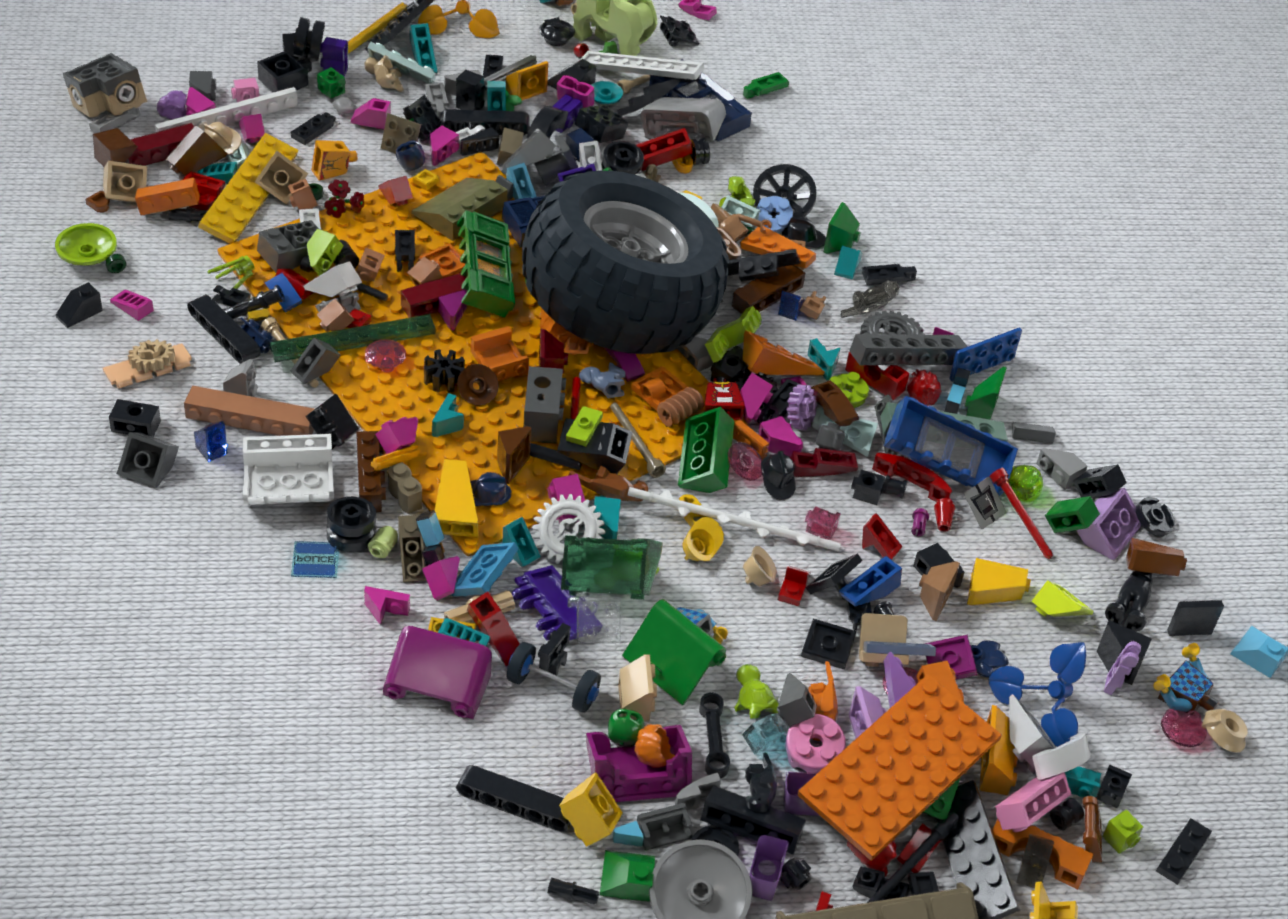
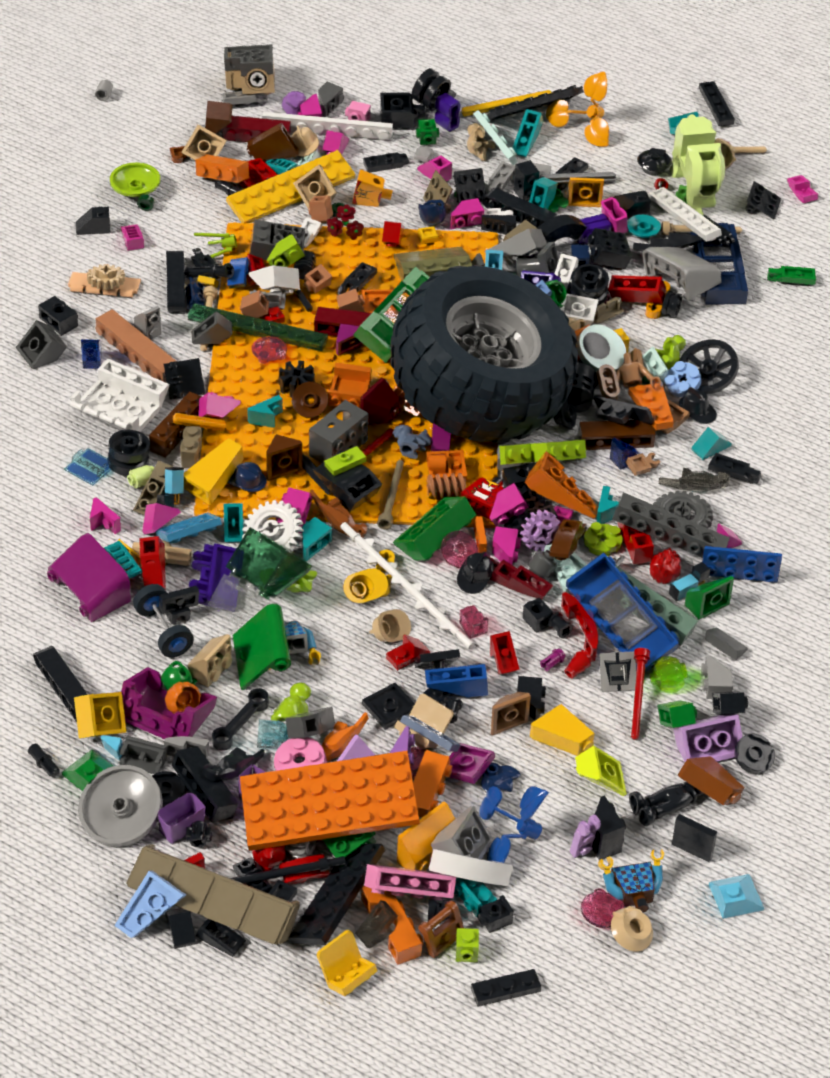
camera: 40 degrees right, 0 degrees up
(842, 230) = (724, 414): green slope -> none

